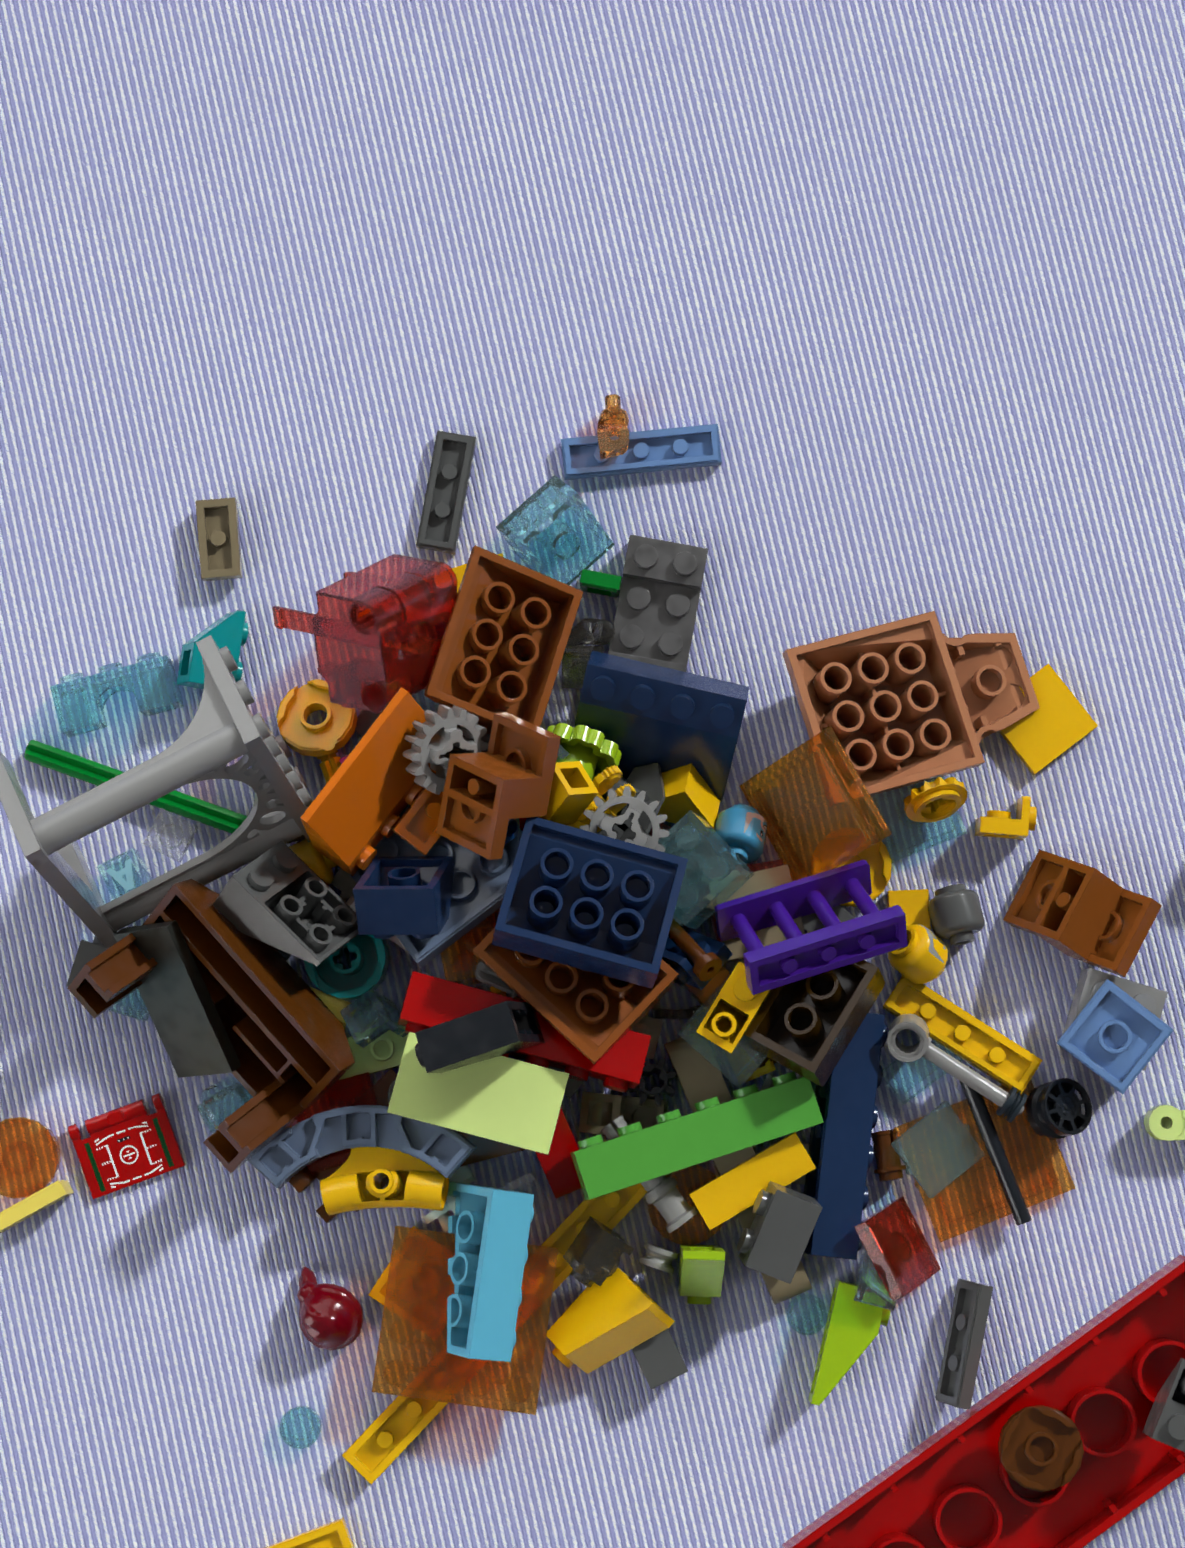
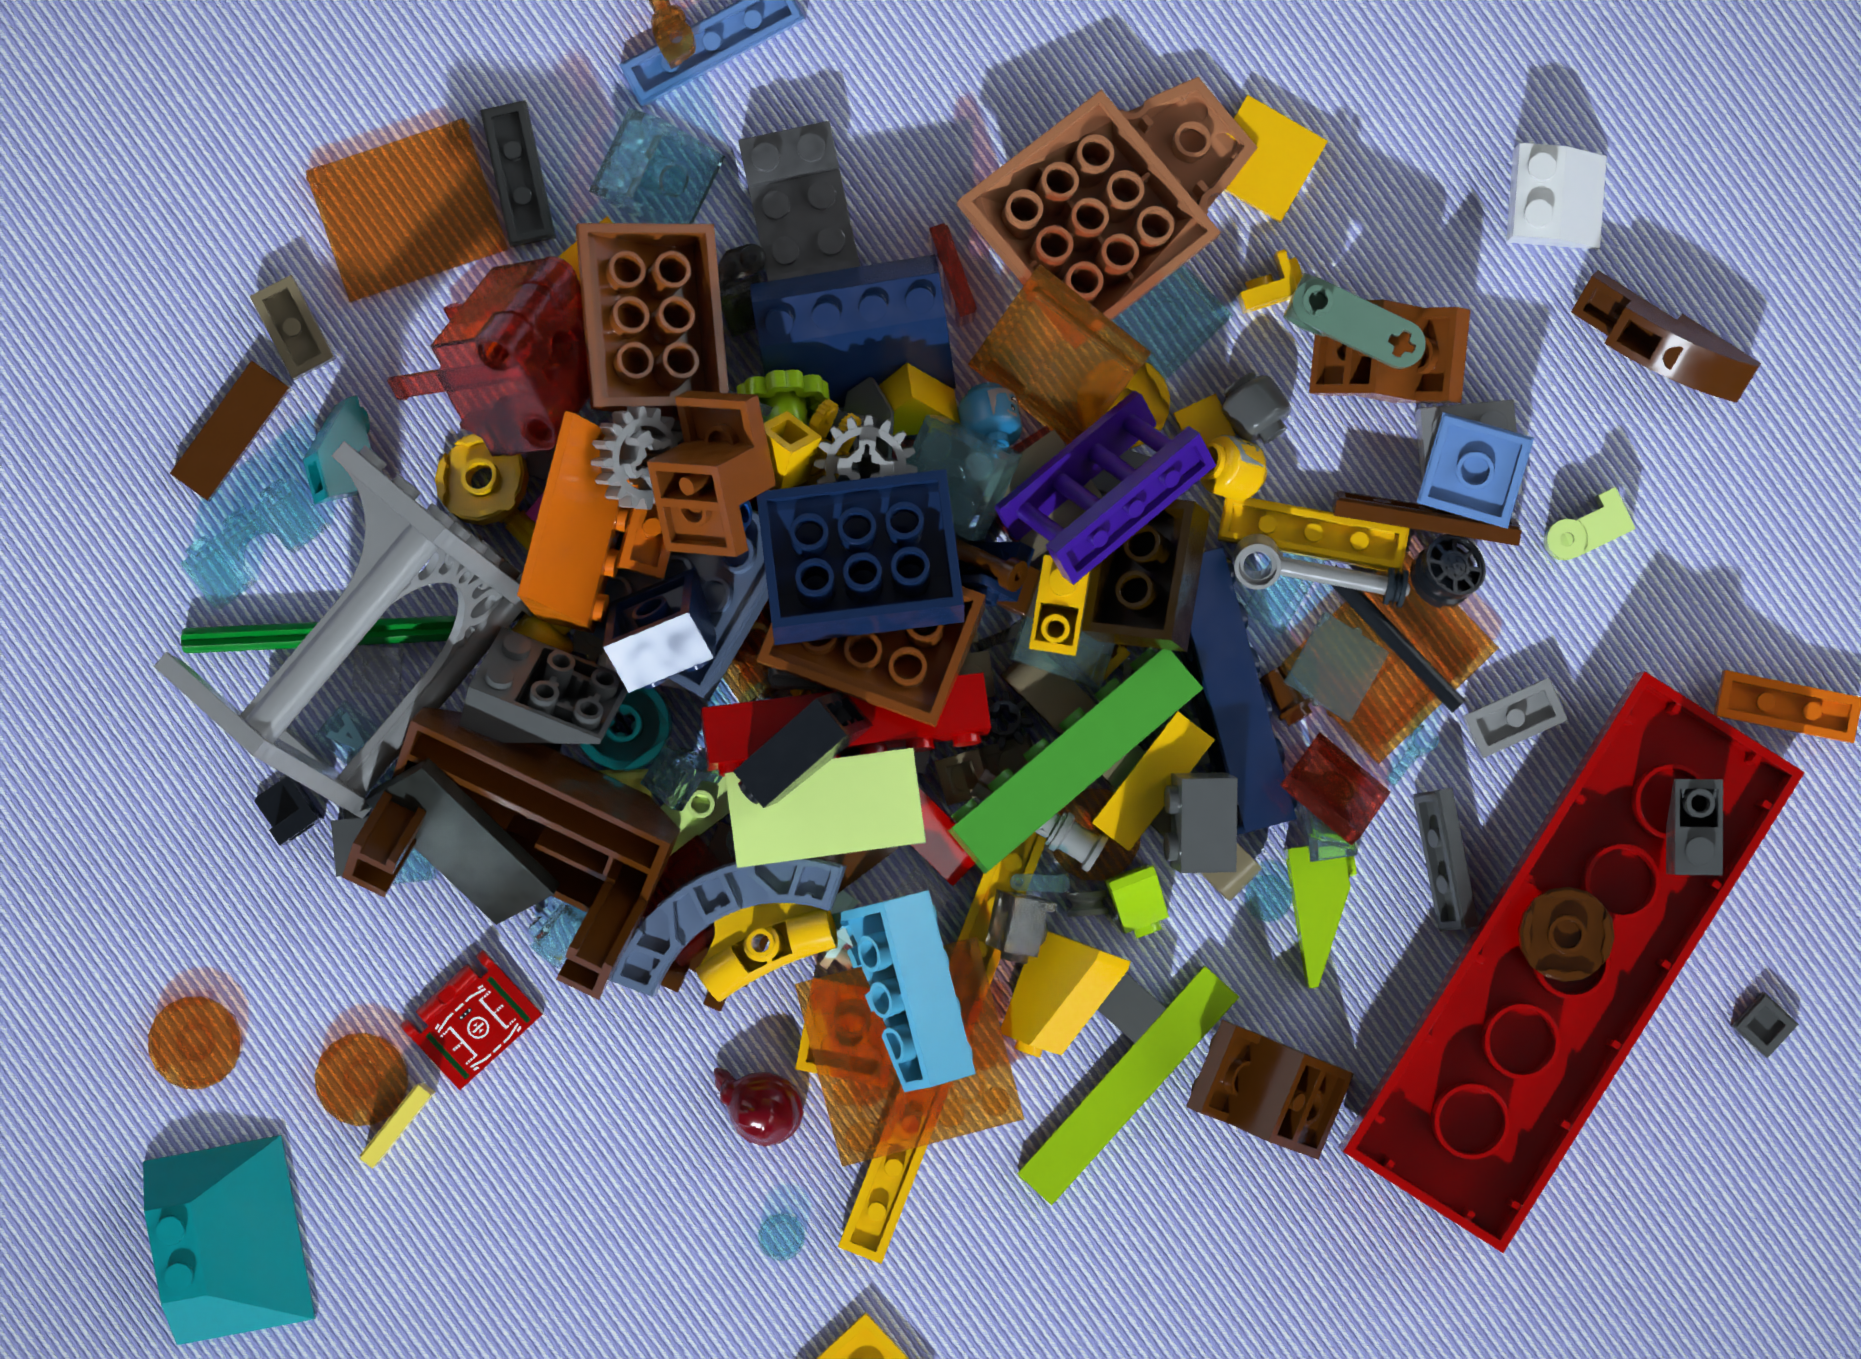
camera: 25 degrees left, 5 degrees up
(52, 919) = (287, 810): none -> black panel
(136, 600) = (230, 431): none -> reddish brown tile
(347, 485) = (407, 210): none -> clear orange piece
(600, 583) = (727, 206): green tile -> none
(628, 1226) = (1040, 882): none -> clear light blue piece
(630, 1421) = (1127, 1085): none -> lime tile
(745, 1473) = (1269, 1089): none -> reddish brown bracket
(756, 708) = (952, 274): none -> clear red tile
(935, 800) = (1184, 295): yellow gear -> none
(969, 1245) = (1411, 755): none -> clear light blue hand
(1054, 1057) = (1420, 517): none -> reddish brown tile
(1063, 875) = (1352, 321): none -> sand green piece
(1066, 1250) = (1515, 718): none -> light grey plate

